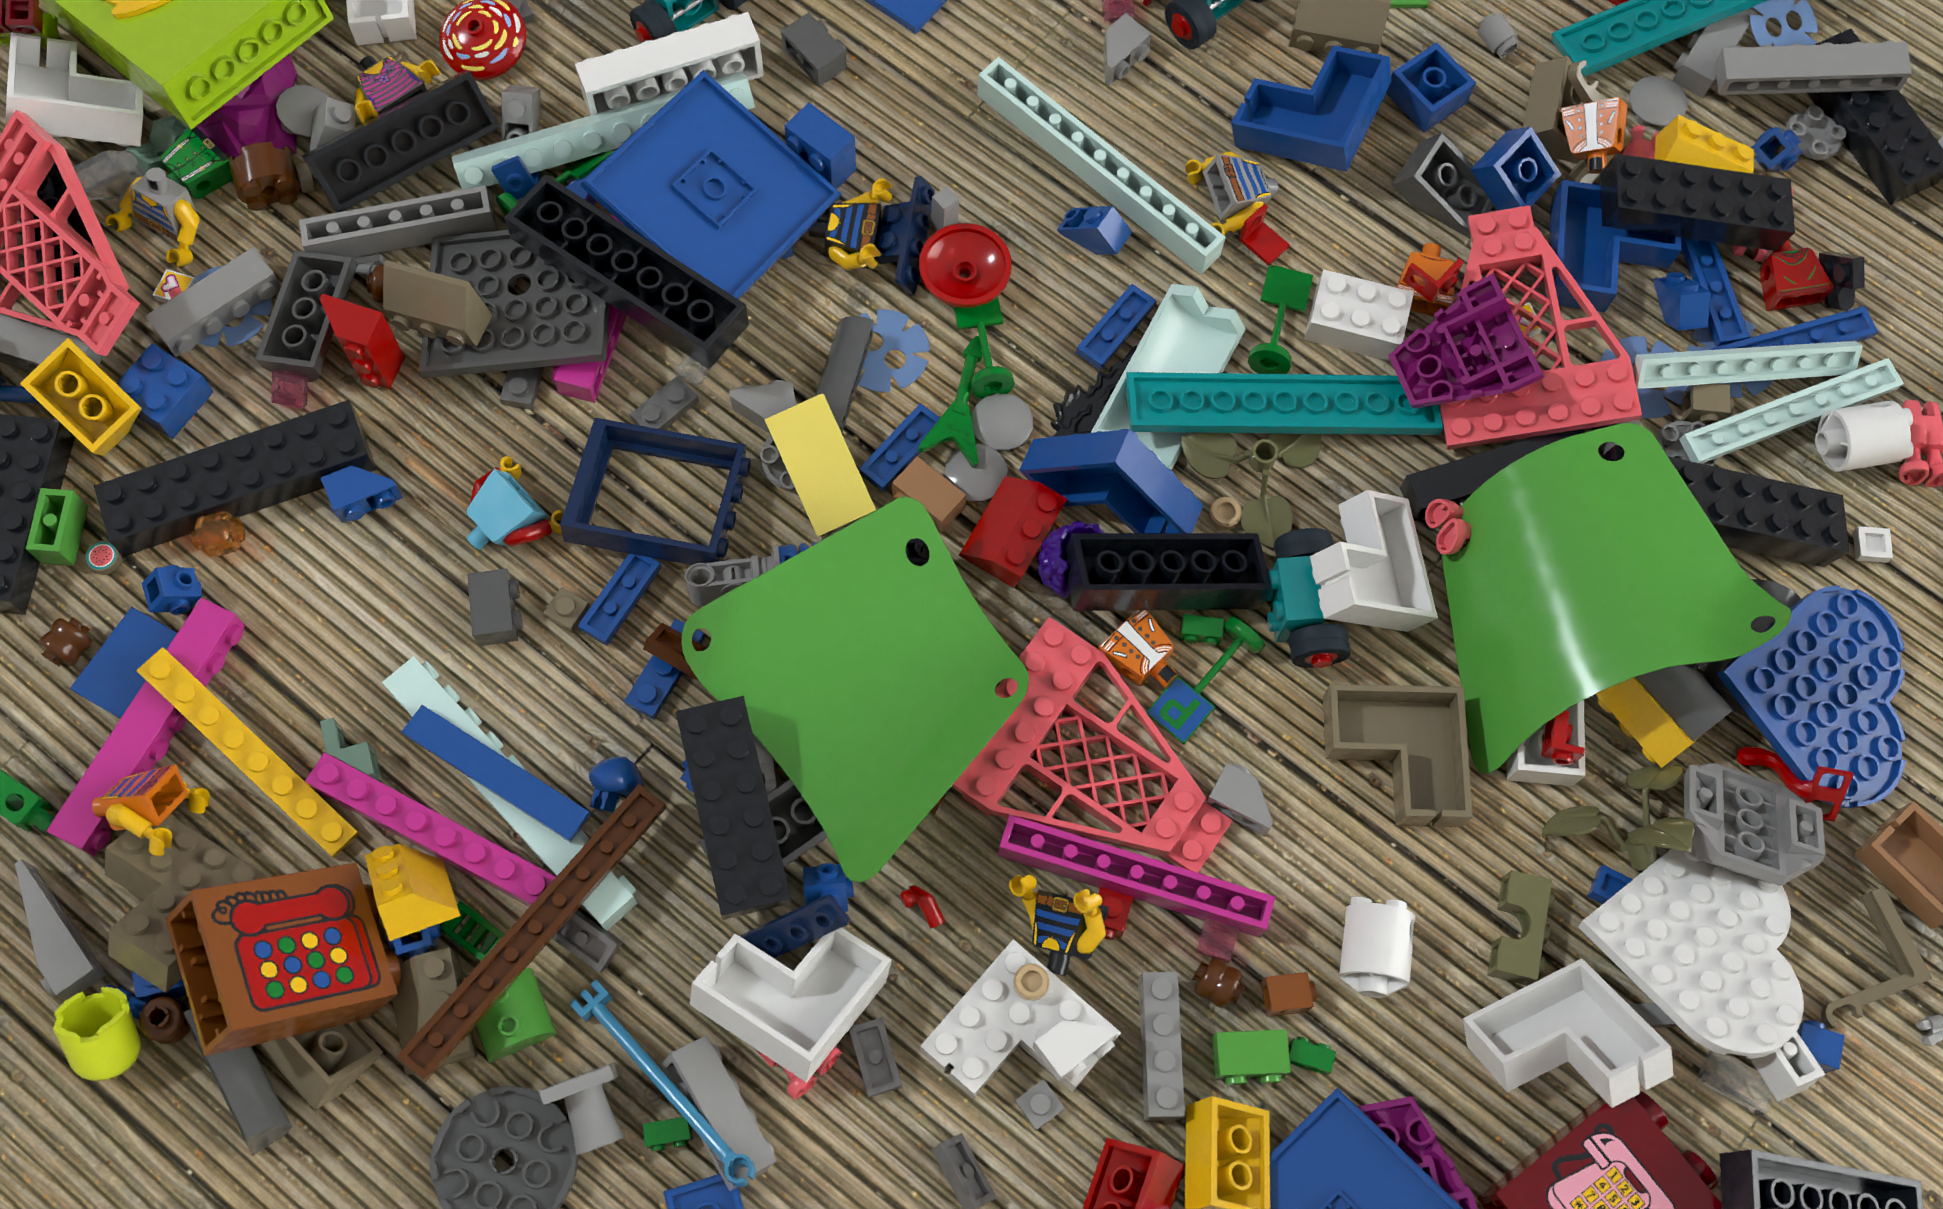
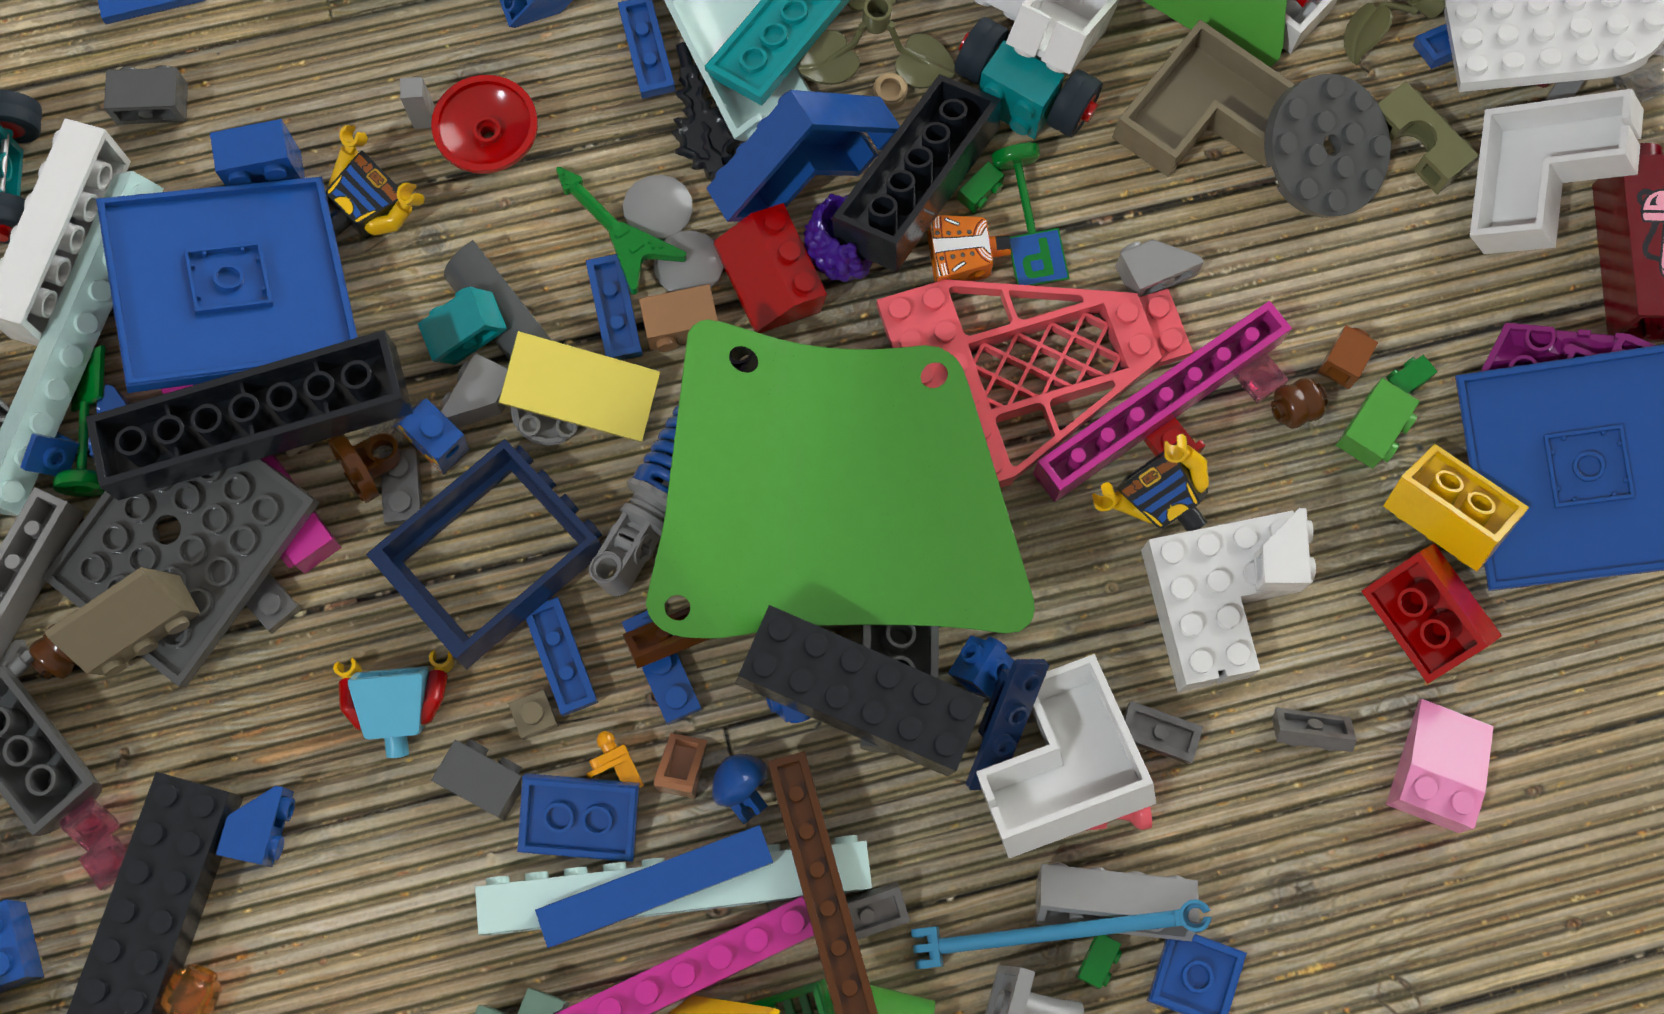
camera: 50 degrees left, 5 degrees up
(271, 414) = (104, 861): none -> clear pink plate
(365, 341) = (106, 714): red slope -> none
(513, 691) = (578, 817): none -> blue tile
(573, 689) = (614, 757): none -> light orange piece
(599, 732) = (681, 766): none -> nougat slope
(656, 367) = (361, 465): none -> reddish brown tile
(711, 398) = (433, 435): none -> blue torso
(805, 358) = (462, 325): none -> teal brick
(904, 234) = (403, 154): dark blue bracket -> none
(913, 340) = (512, 229): medium blue piece -> none
(926, 902) = (1055, 591): red arm -> none
(991, 378) = (613, 185): green piece -> none
(1031, 982) = (1201, 550): tan tile -> none
(1039, 1105) = (1296, 625): light grey plate -> none
(1161, 1046) = (1321, 489): light grey brick -> none
(1377, 947) = (1365, 256): white cylinder -> none
(1479, 863) = (1295, 150): none -> dark grey plate

